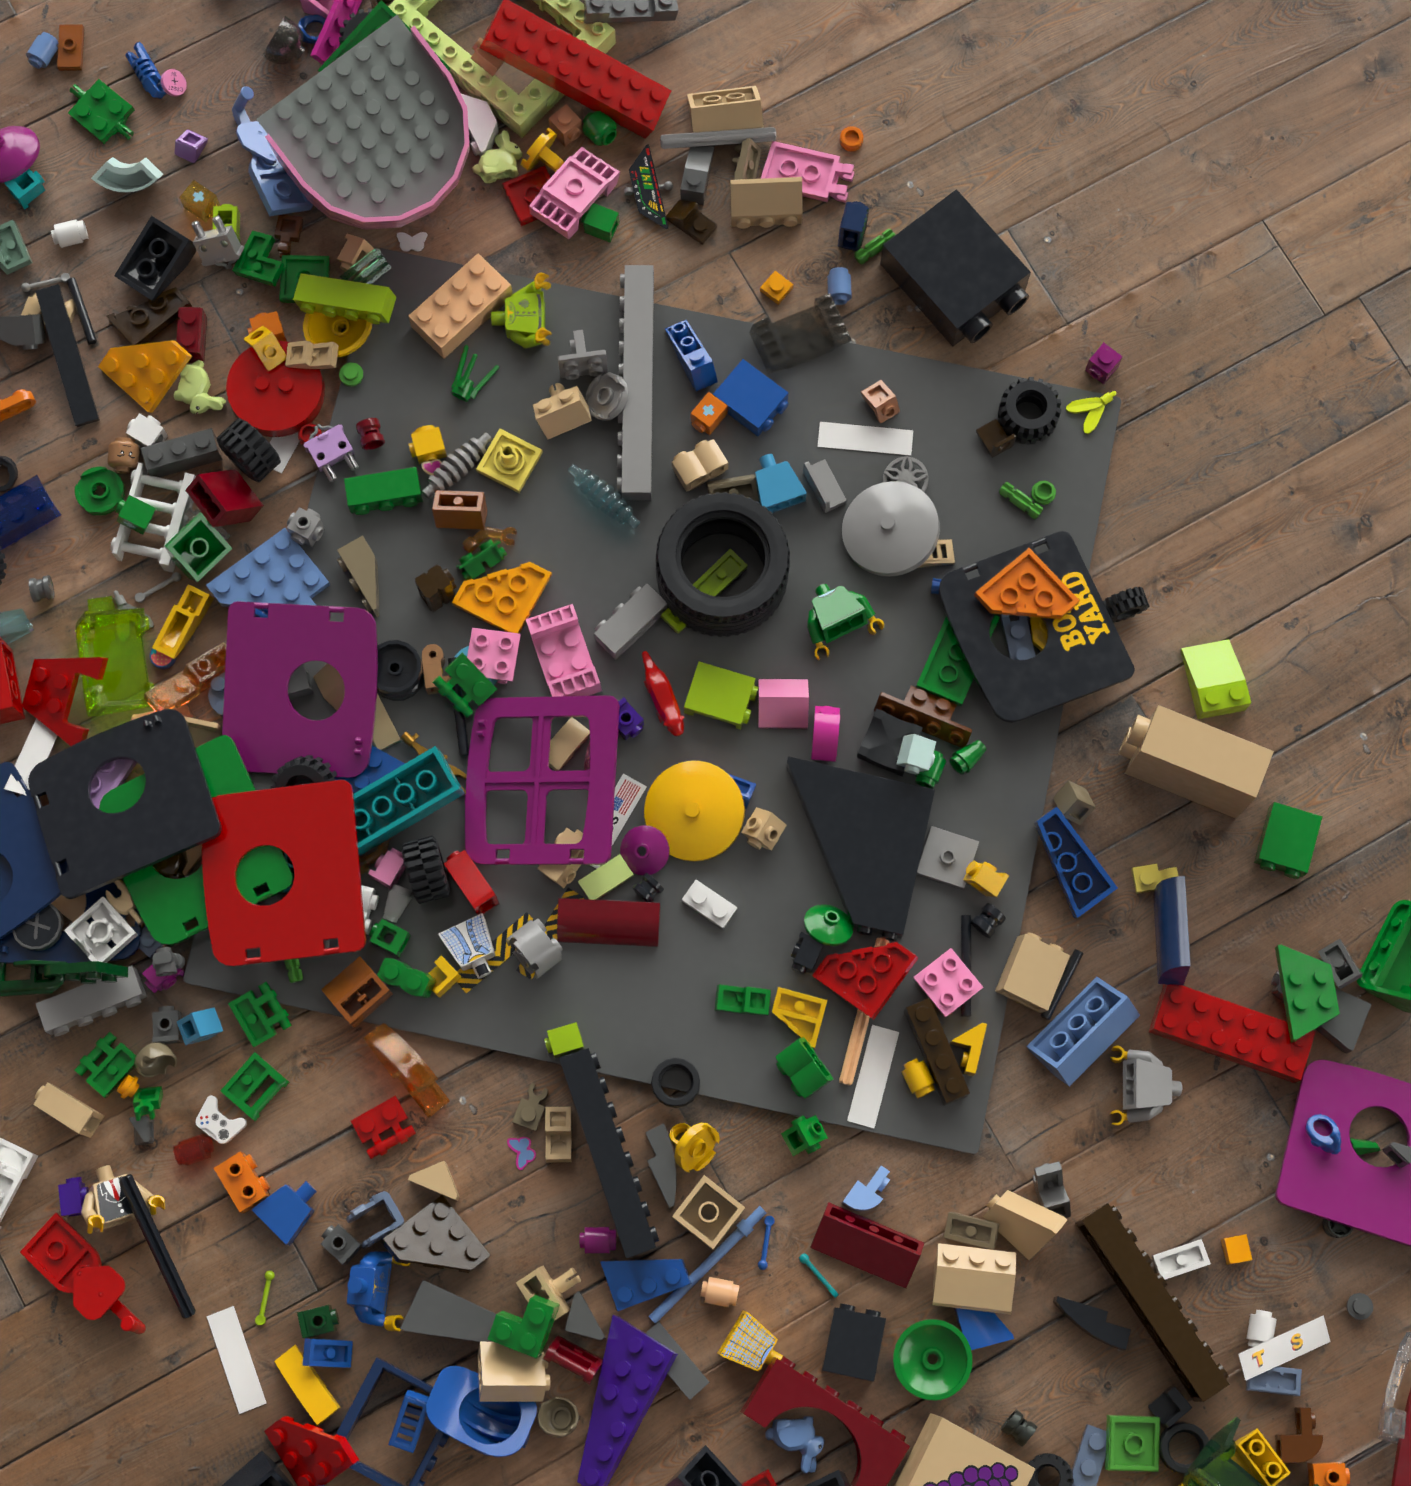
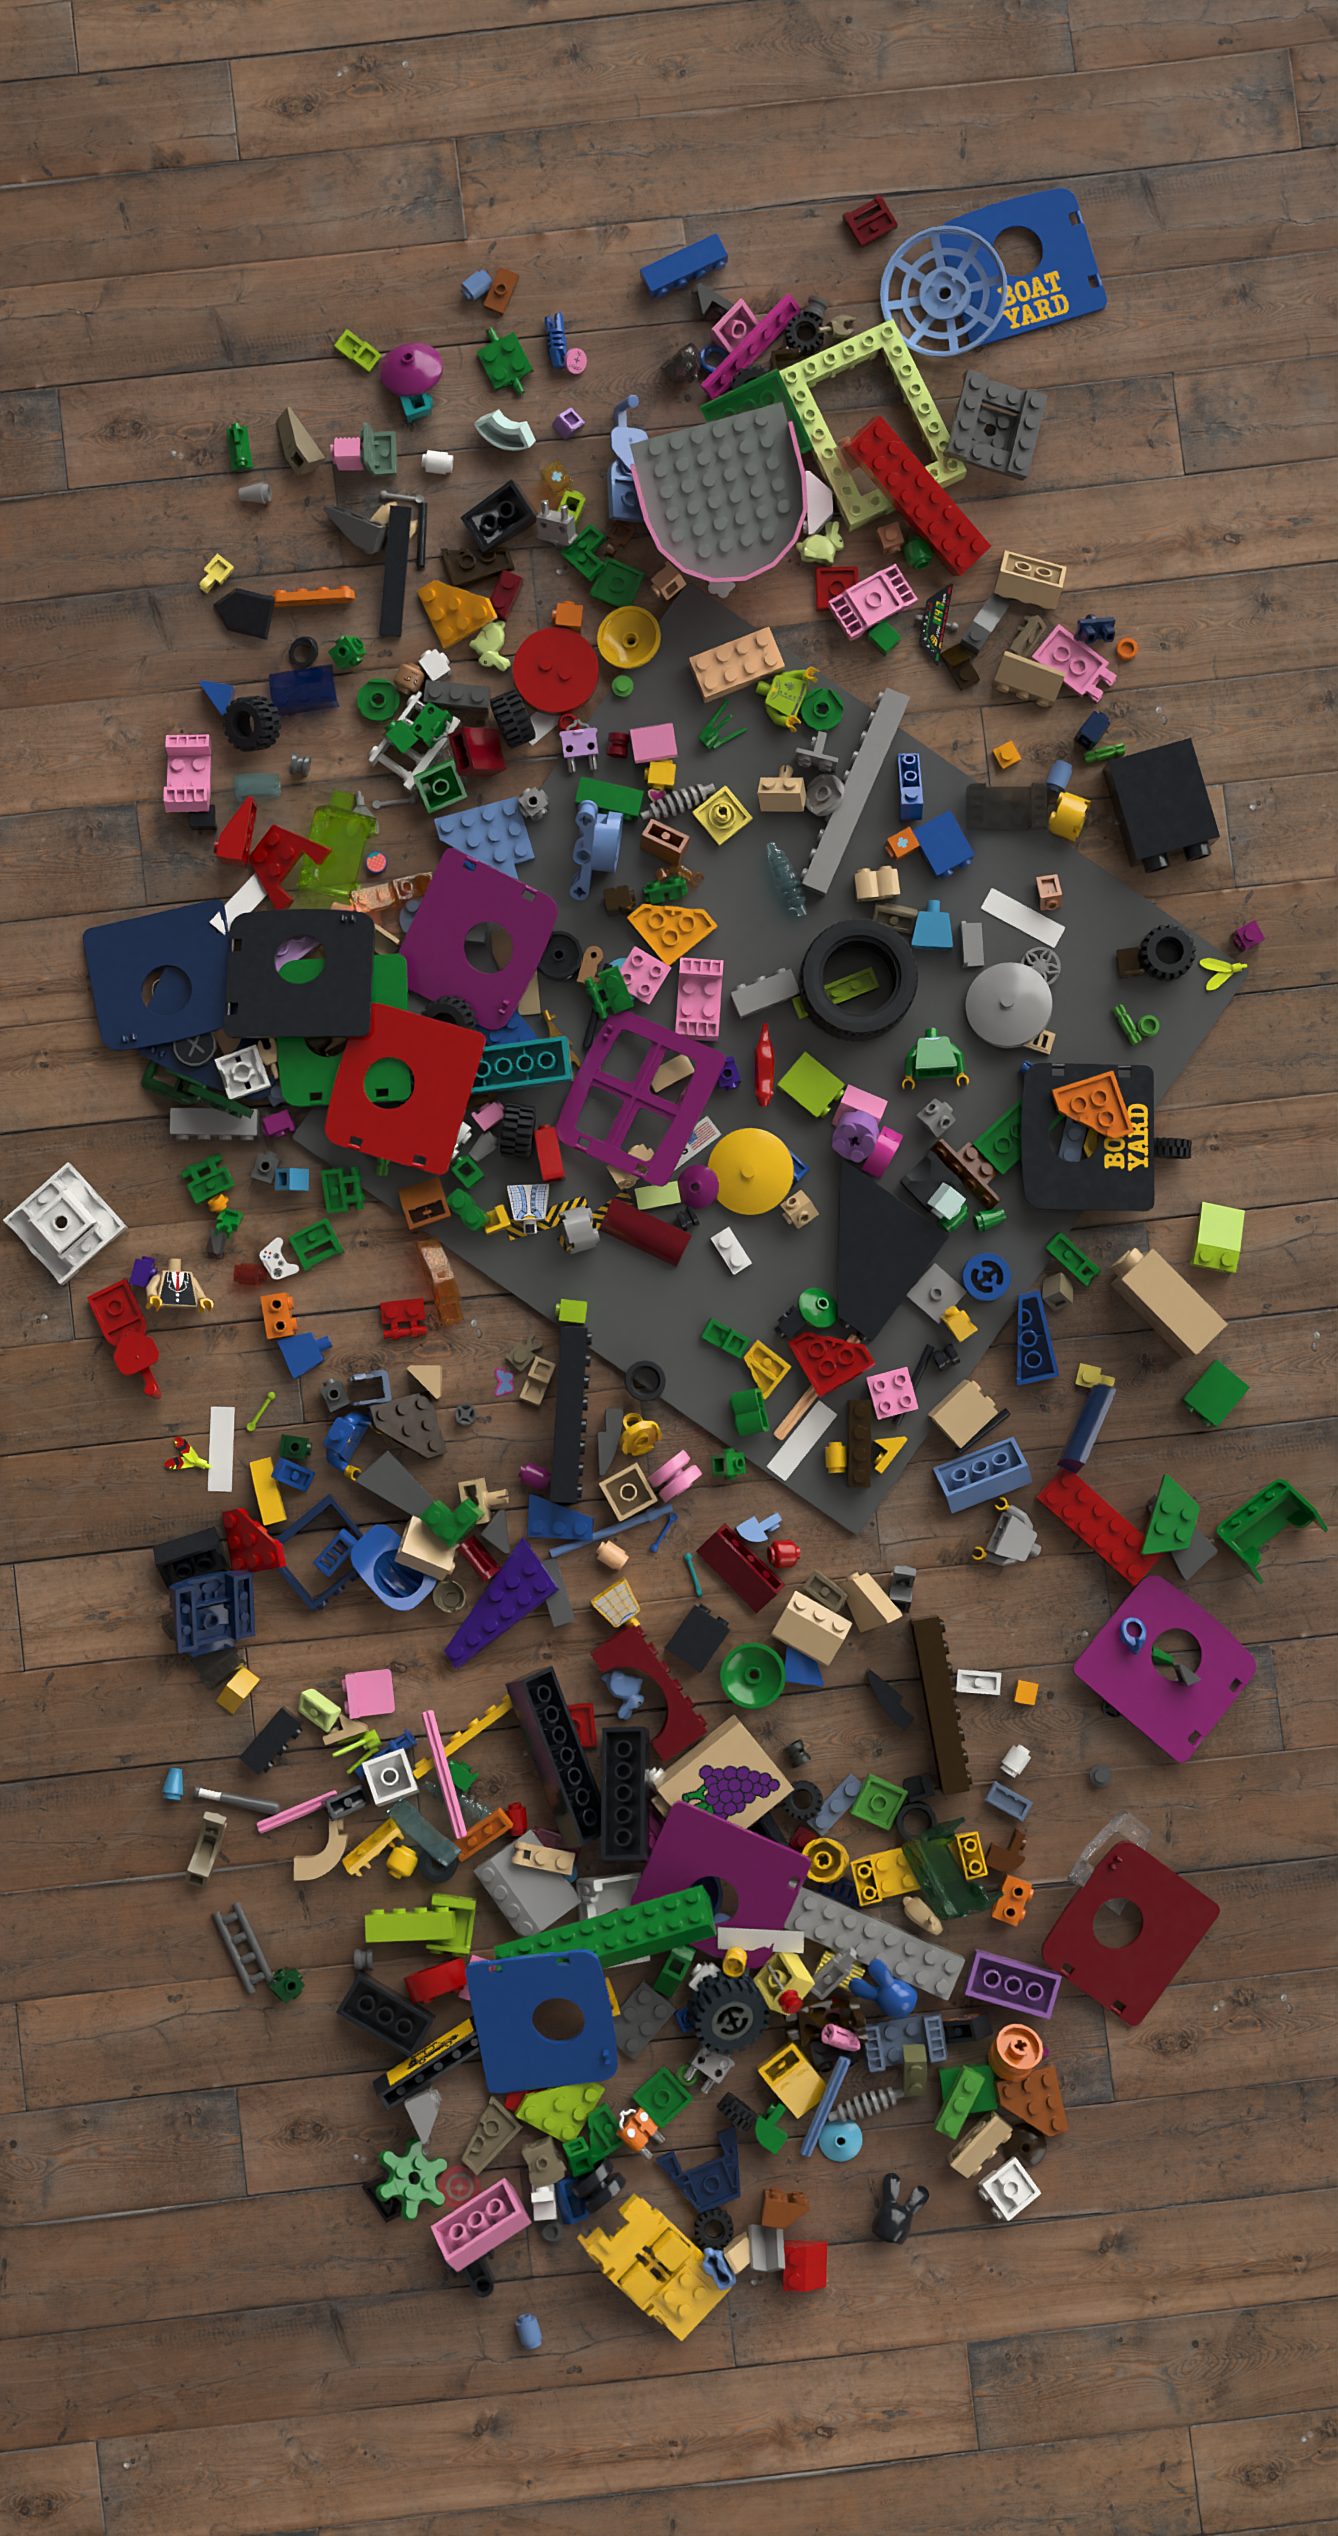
camera: 20 degrees right, 10 degrees up
(47, 454) = (347, 652): none -> green brick
(68, 1110) = (164, 1202): tan slope -> none
(154, 1059) = (246, 1190): dark tan hair -> none
(157, 1246) = (194, 1337): black axle -> none
(163, 489) = (430, 724): none -> green piece
(166, 962) = (285, 1119): dark grey plate -> none
(182, 621) = (403, 841): yellow slope -> none
(205, 1386) = (190, 1457): none -> piece
(266, 347) = (561, 635): yellow bracket -> none
(311, 356) = (596, 657): tan slope -> none
(344, 298) = (642, 620): lime brick -> none
(363, 262) = (671, 604): clear green tile -> none
(363, 567) = (564, 866): dark tan slope -> none
(392, 534) = (599, 843): none -> medium blue piece
(406, 414) = (653, 743): none -> bright pink slope
(490, 1201) = (465, 1414): none -> dark grey wheel
(541, 151) = (859, 555): yellow tile -> none
(563, 304) = (833, 712): none -> green plate
(714, 138) = (1013, 603): light grey axle -> none
(752, 1173) = (675, 1477): none -> bright pink wheel
(789, 738) = (855, 1135): none -> medium lavender brick
(812, 129) = (1095, 628): none -> dark blue hips
(866, 673) = (936, 1117): none -> light grey brick
(867, 318) = (1069, 816): none -> yellow brick
(907, 1209) = (783, 1554): none -> red head
(1009, 826) = (996, 1290): none -> blue wheel
(1074, 761) = (1072, 1258): none -> green plate
(1284, 1347) = (1027, 1781): white sticker -> none
(1343, 967) = (1210, 1509): dark grey slope -> none

